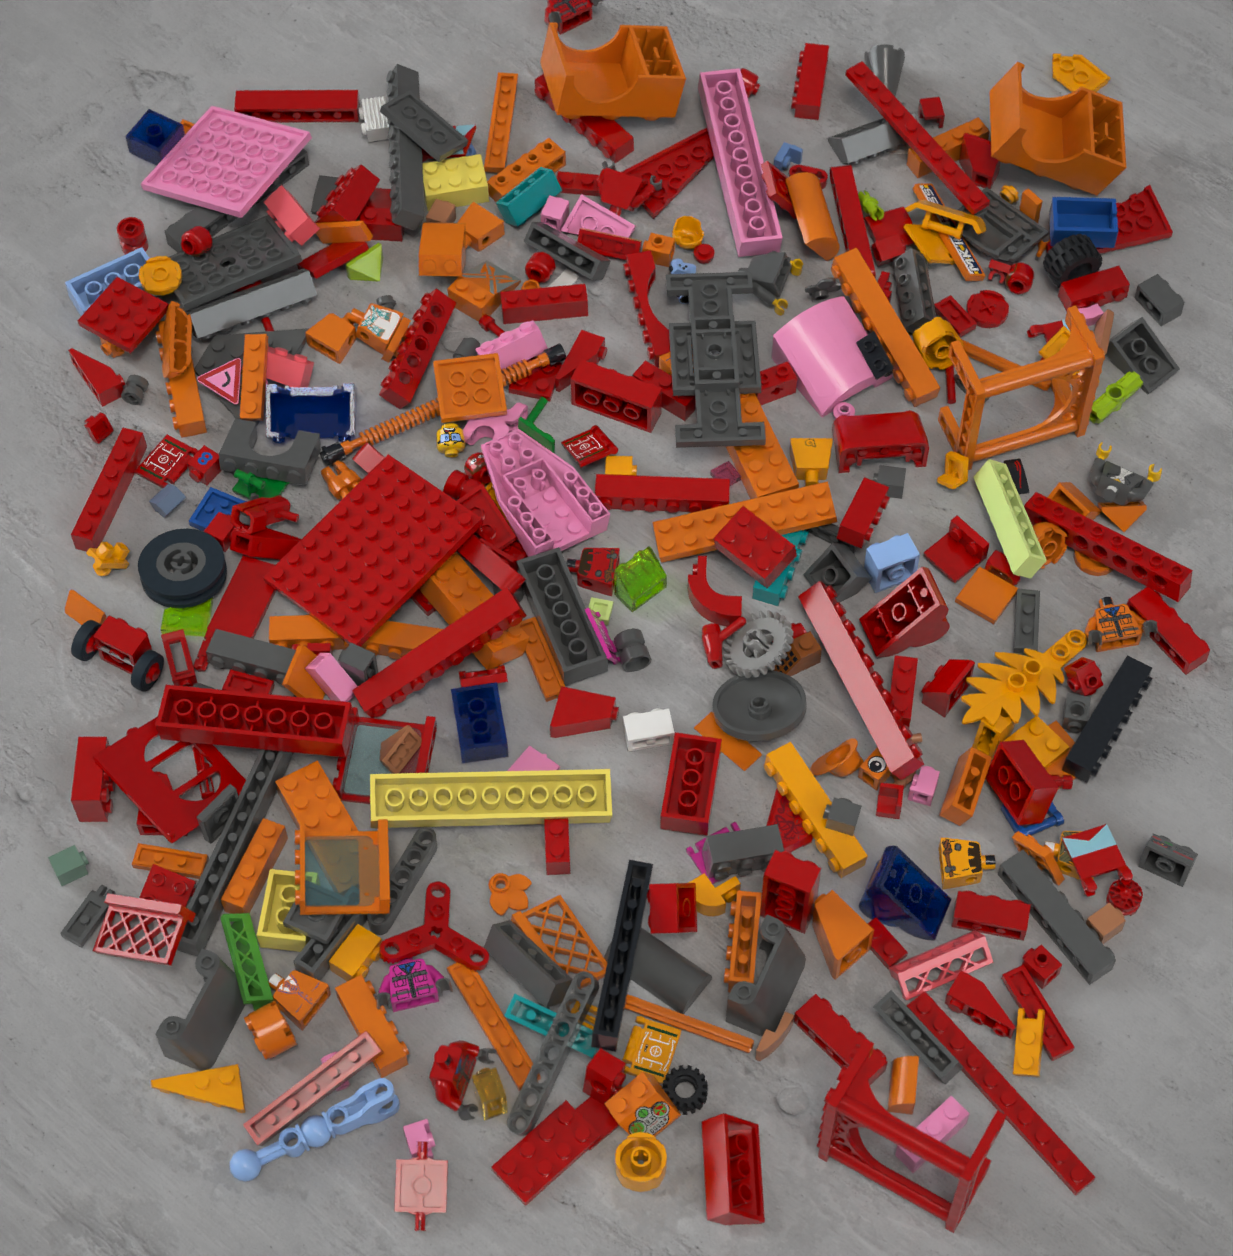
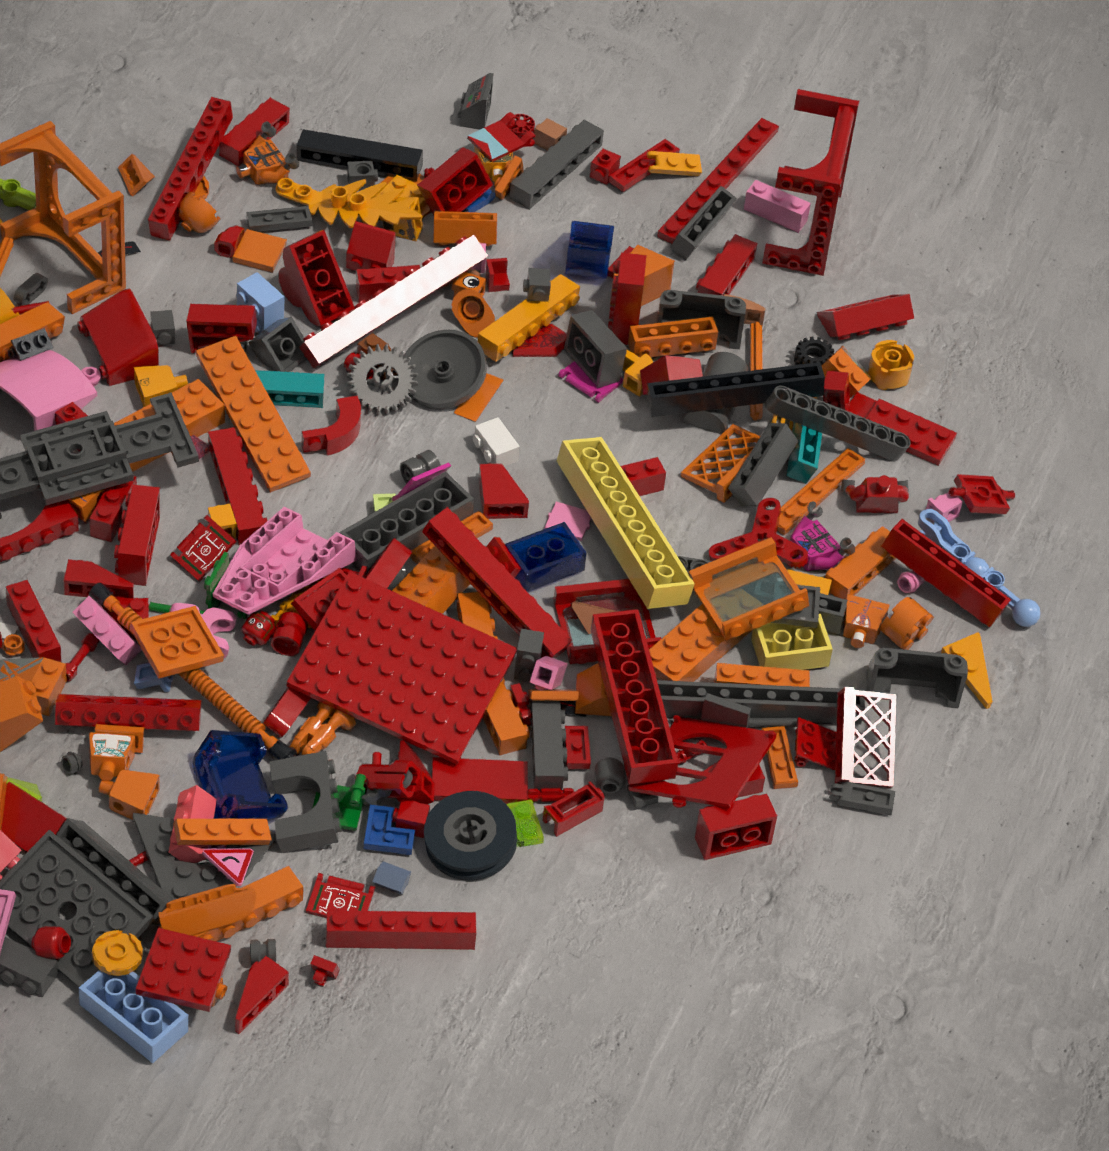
camera: 115 degrees left, 10 degrees down
(69, 865) = (824, 827): sand green brick -> none
(82, 610) = (551, 907): orange slope -> none
(109, 557) = (484, 899): light orange hips -> none
(121, 647) = (583, 847): brick -> none
(132, 235) = (54, 1018): red wheel -> none
(204, 465) = (338, 857): red brick -> none
(247, 959) = (849, 660): bright green fence -> none
(450, 440) = (235, 661): yellow head -> none
(467, 348) = (116, 676): dark grey brick -> none
(489, 1093) = (888, 460): clear yellow brick -> none
(510, 896) = (695, 507): orange plate -> none
(596, 569) = (339, 511): red torso -> none
(639, 579) = (344, 478): clear neon green slope -> none
(691, 784) = (541, 399): red brick -> none
(713, 640) = (381, 418): red piece -> none
(755, 546) = (290, 385): red brick -> none
(903, 1084) = (745, 224): orange brick -> none
(938, 956) = (626, 224): coral fence -> none
(955, 470) = (140, 286): light orange bracket -> none
(958, 550) = (220, 272): red bracket -> none
(962, 862) = (535, 225): light orange torso -> none
(975, 1000) = (652, 197): red slope -> none
(991, 915) = (572, 198): red brick -> none
(1009, 519) = (185, 231): yellowish green brick -> none
(1073, 498) = (141, 205): orange brick -> none
(1083, 676) = (326, 171): red brick -> none
(1118, 483) = (115, 169): dark grey torso -> none

